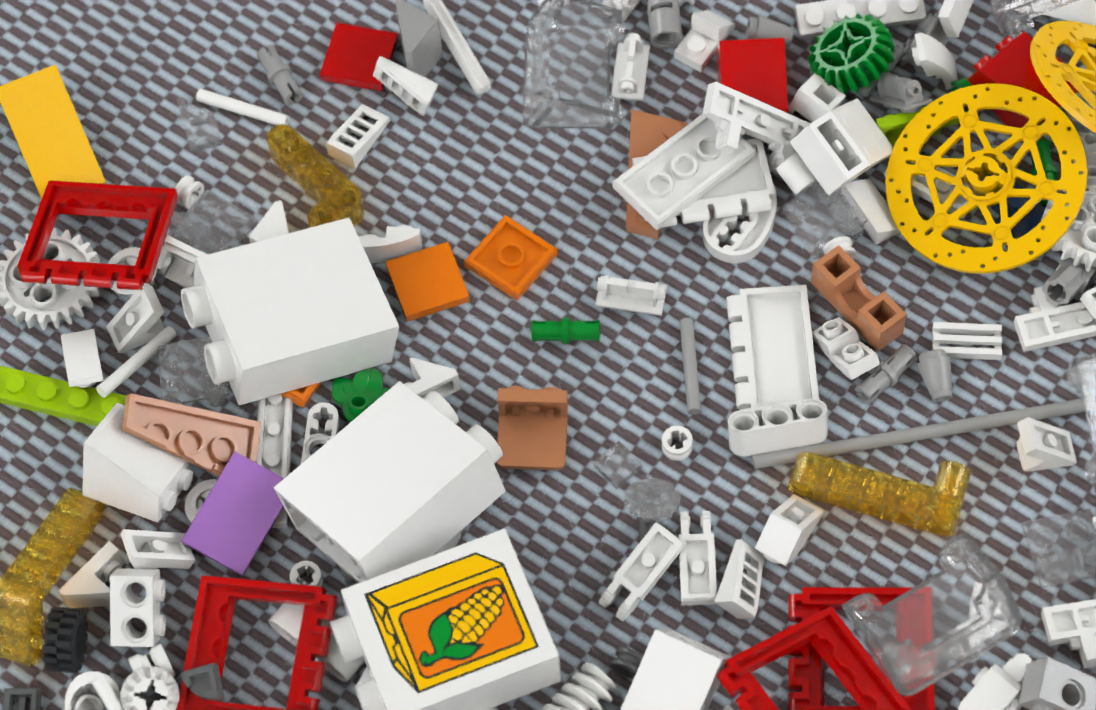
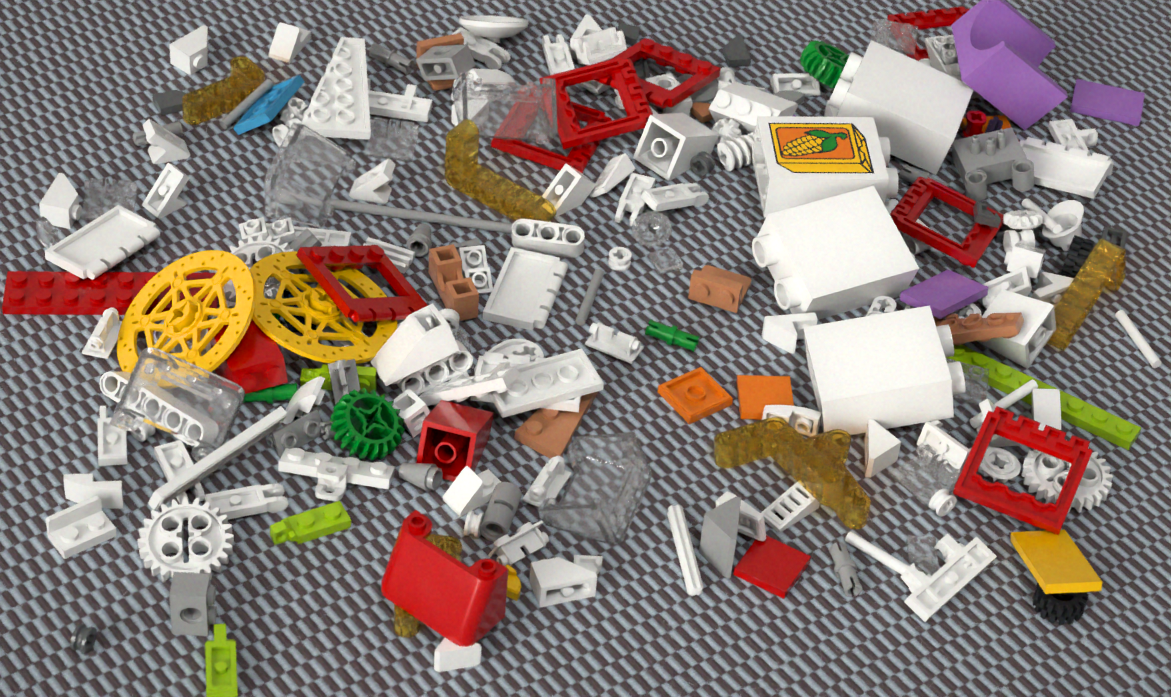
camera: 170 degrees left, 20 degrees down
(154, 111) = (961, 567): none -> white hinge
(374, 172) = (789, 449): none -> clear yellow beam
(998, 258) = (317, 260): none -> red hinge

